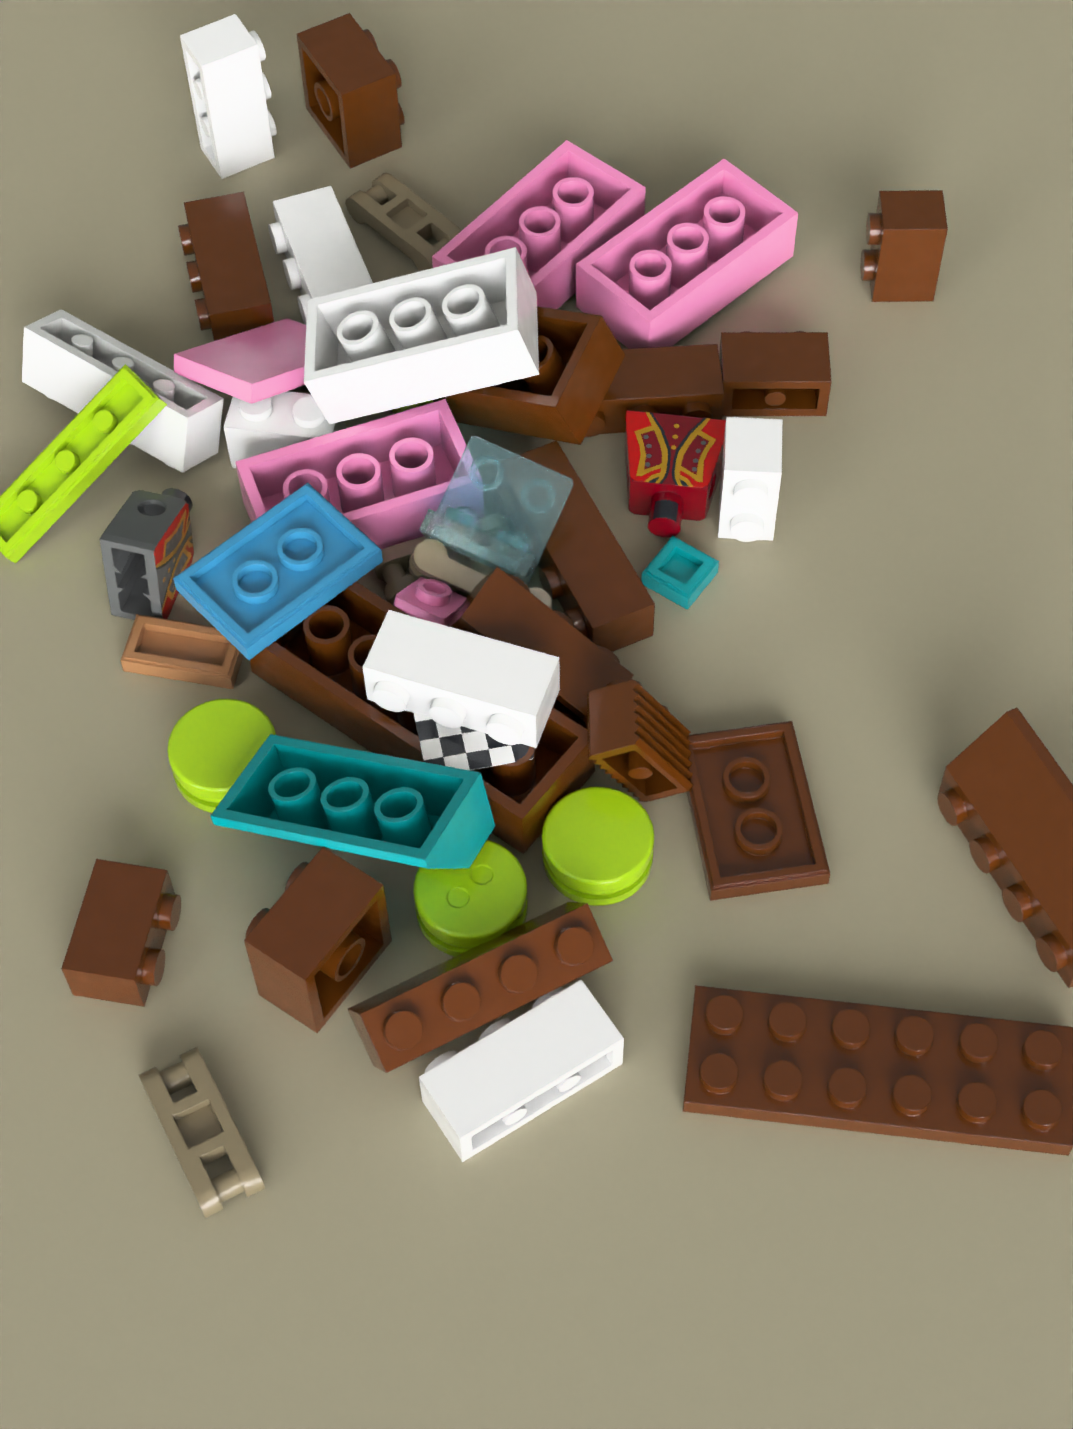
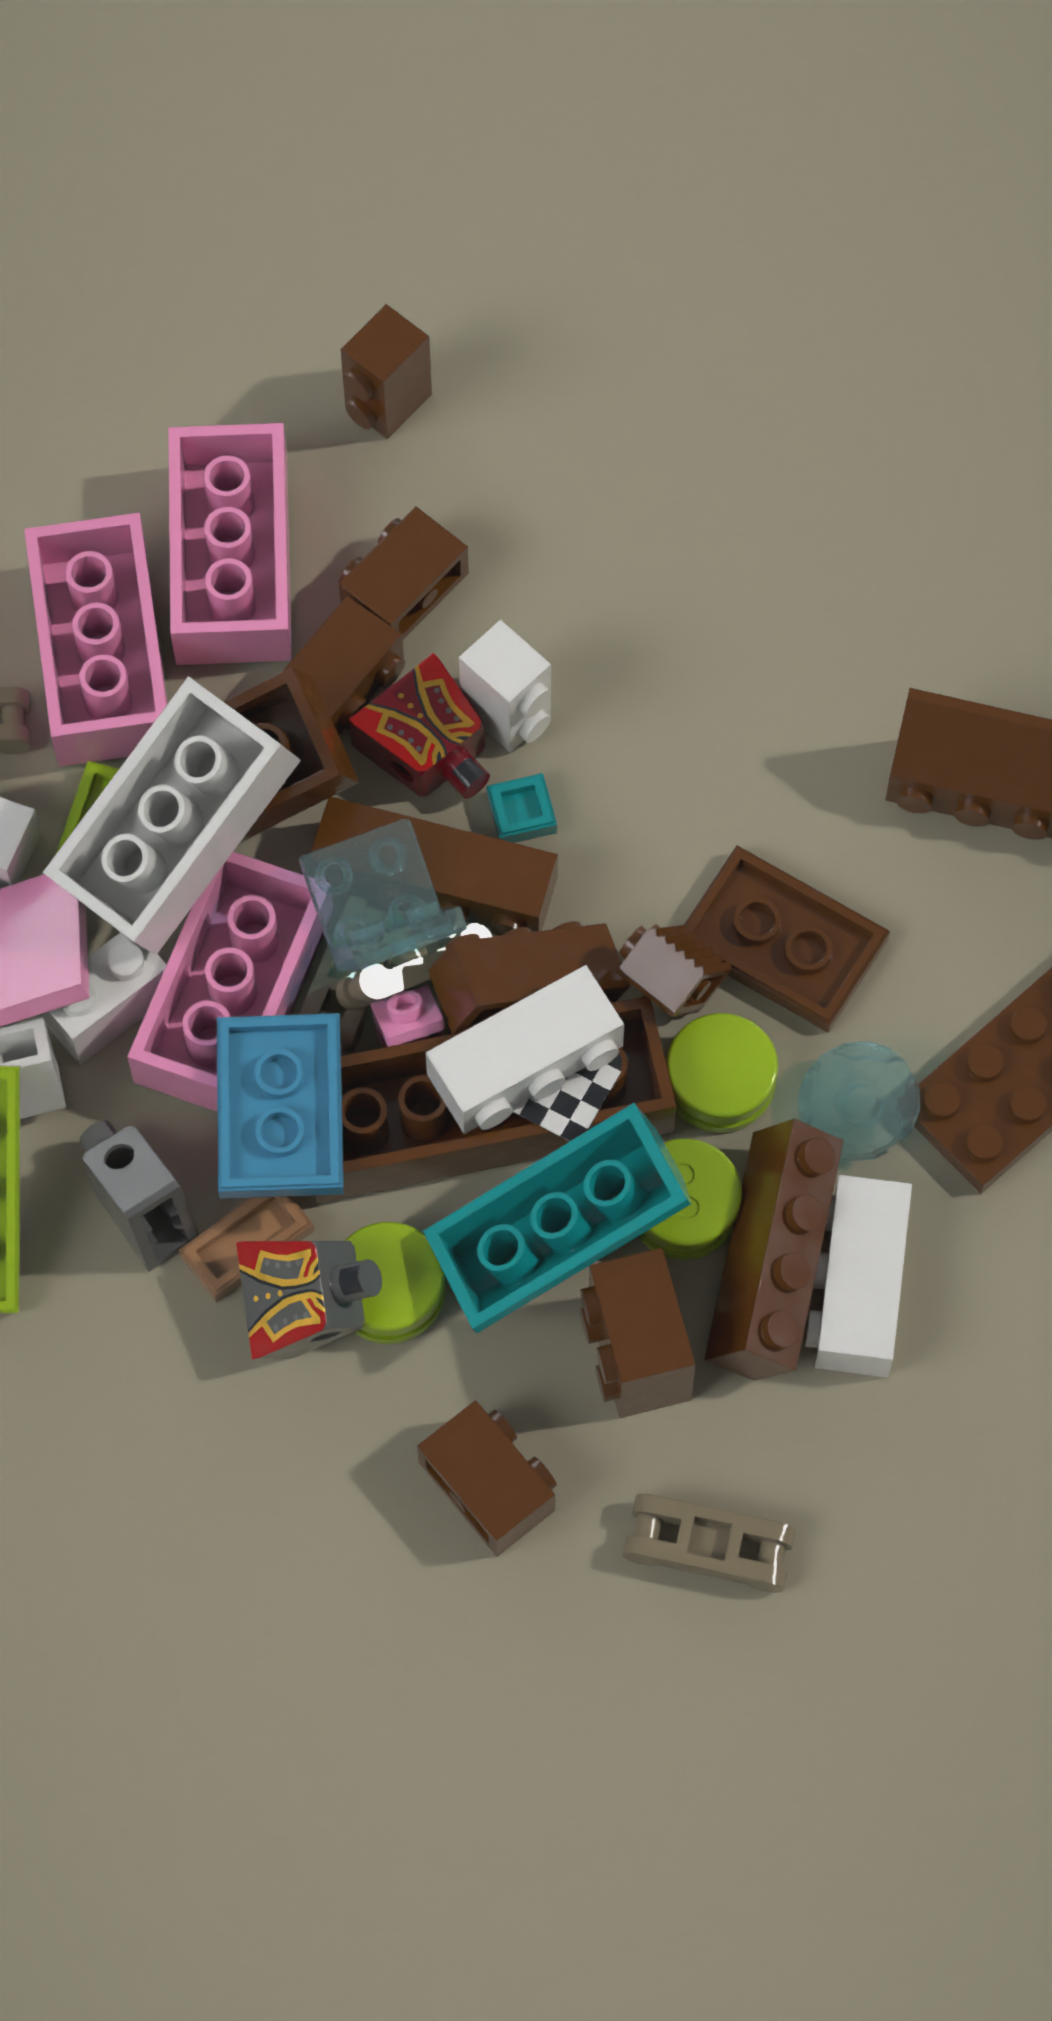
camera: 50 degrees left, 10 degrees up
(152, 698) = (302, 1294): none -> torso
(667, 956) = (862, 1097): none -> clear light blue tile

